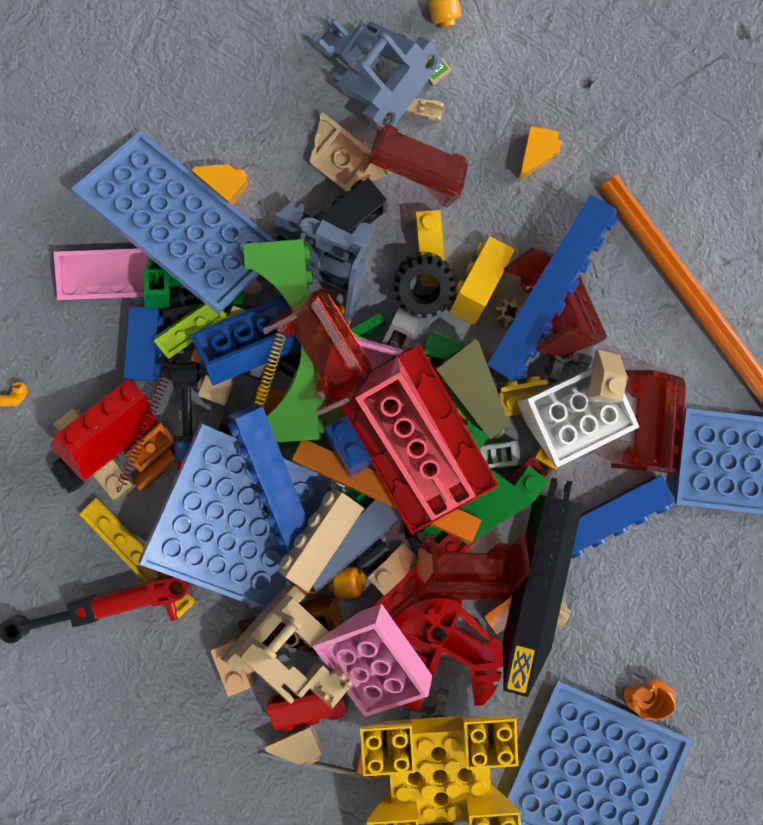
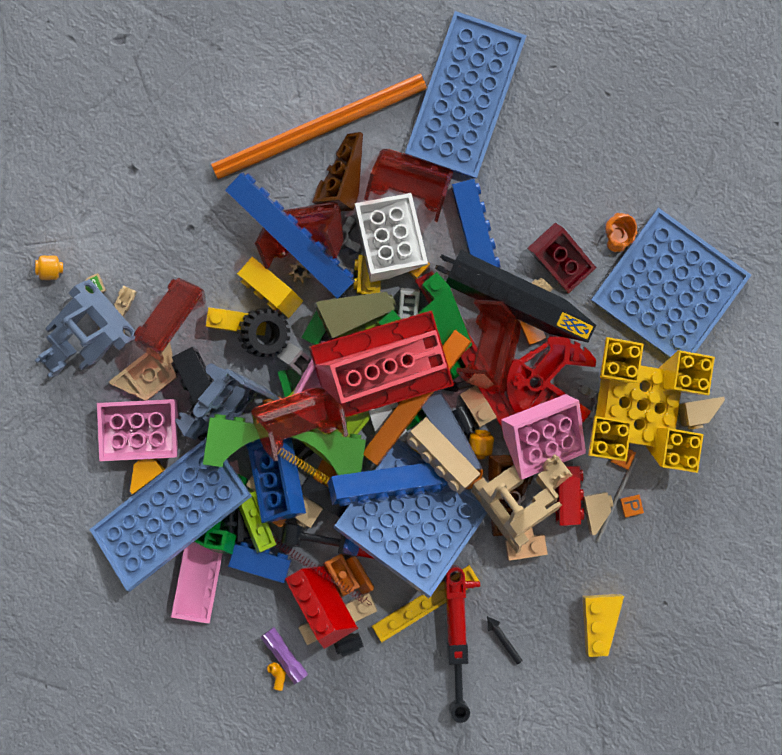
camera: 75 degrees left, 0 degrees up
(26, 412) = (276, 644): none -> medium lavender axle
(128, 647) = (494, 626): none -> black piece
(159, 780) = (600, 622): none -> yellow wedge
(271, 159) = (137, 430): none -> bright pink slope
(312, 787) = (631, 505): none -> orange tile
(348, 446) = (376, 419): blue brick -> none
(539, 150) = (177, 219): light orange slope -> none
(602, 632) = (562, 257): none -> dark red slope
(607, 378) = (368, 208): tan slope -> none
(640, 339) = (343, 178): none -> reddish brown wedge

